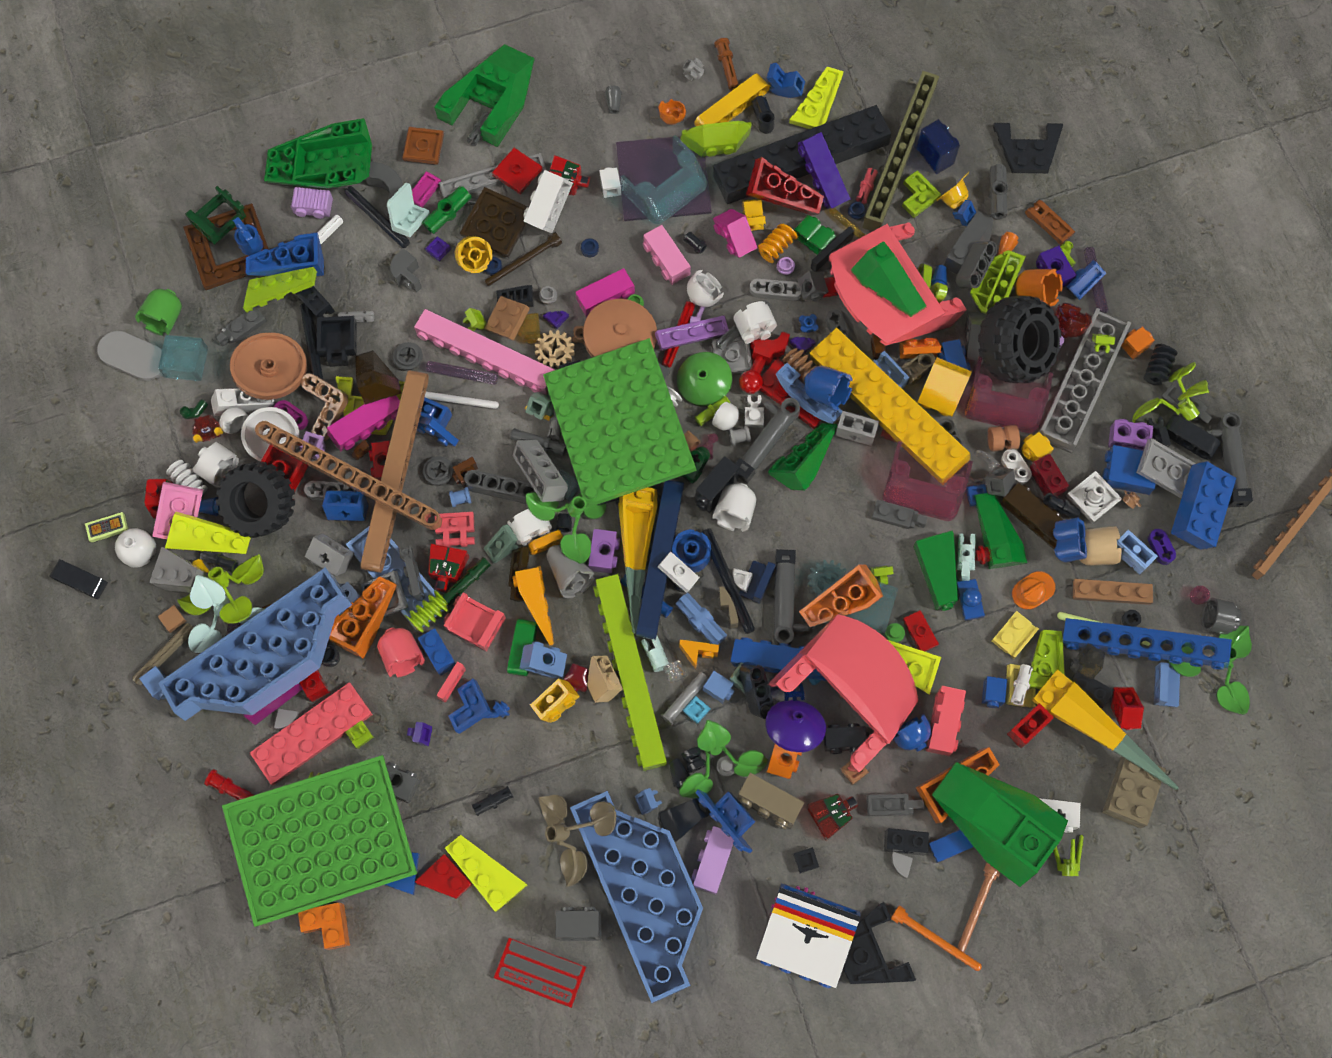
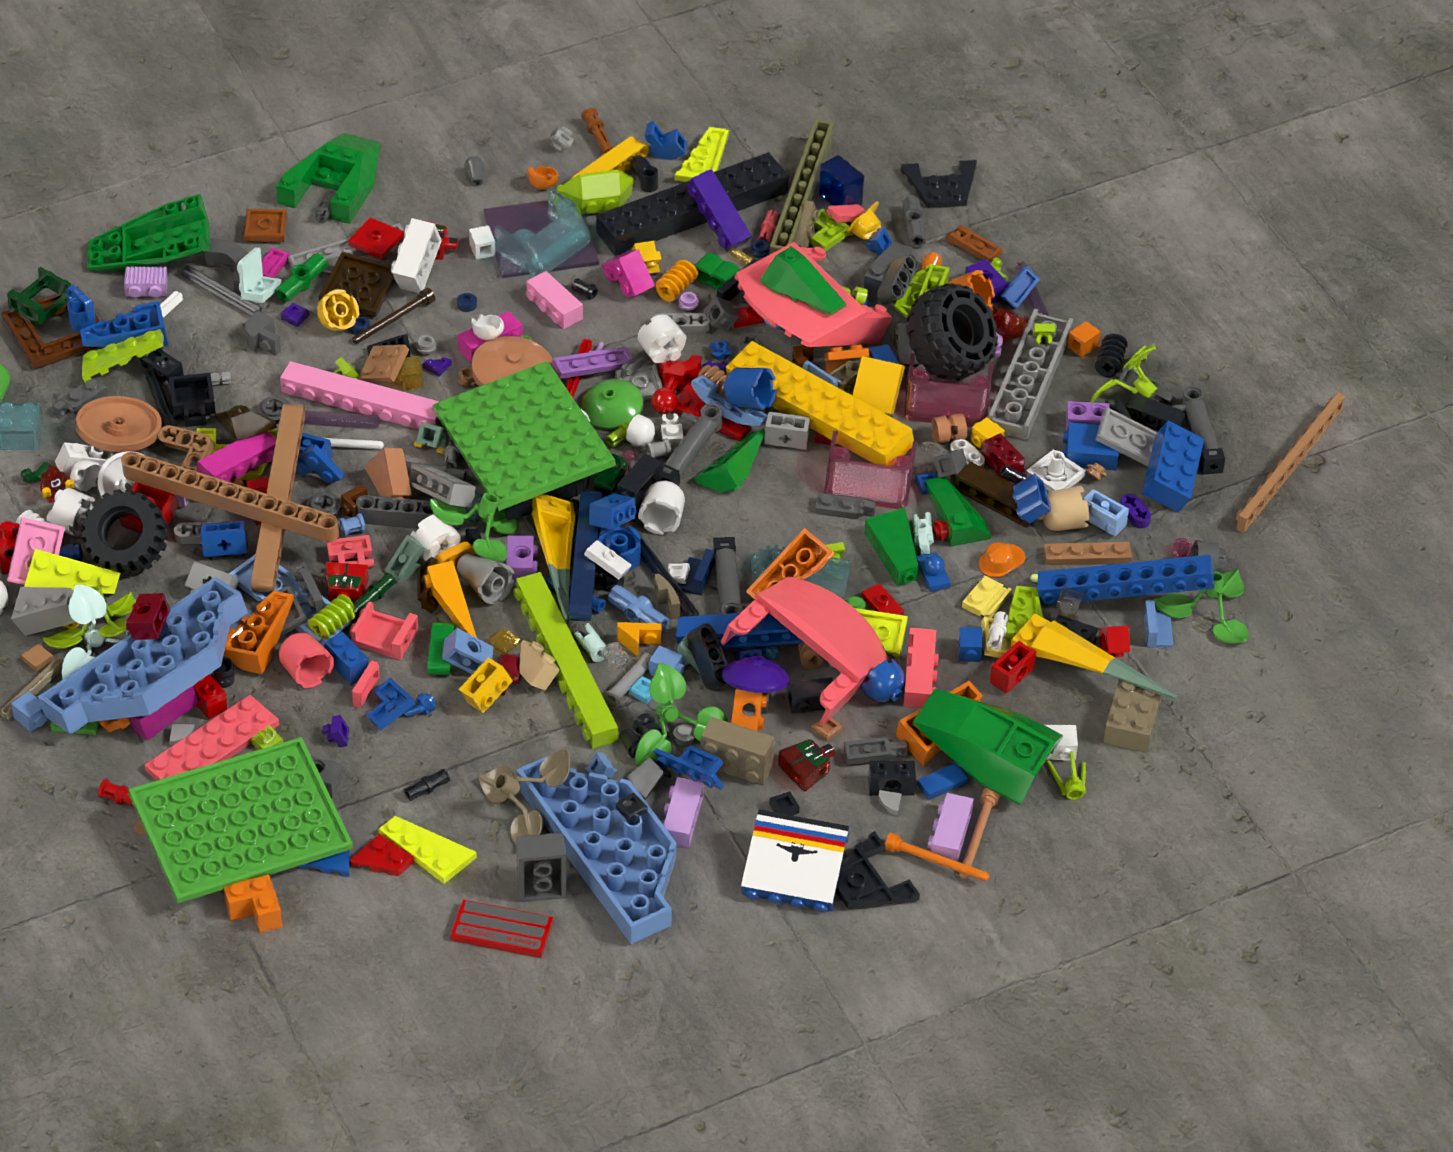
camera: 10 degrees left, 25 degrees down
(259, 612) = (147, 616): none -> dark red brick
(498, 450) = (390, 473): none -> nougat slope
(548, 345) = (440, 386): tan gear -> none
(579, 641) = (504, 641): none -> clear yellow tile
(601, 289) = (488, 327): none -> white hair
(667, 865) = (631, 807): none -> black tile
(688, 517) = (612, 511): none -> blue brick
(704, 289) = (600, 325): white cylinder -> none
(779, 188) = (676, 229): red wedge -> none
(900, 194) = (806, 225): none -> dark tan hinge
(939, 177) = (845, 213): none -> coral tile
(952, 905) = (951, 826): none -> lavender brick

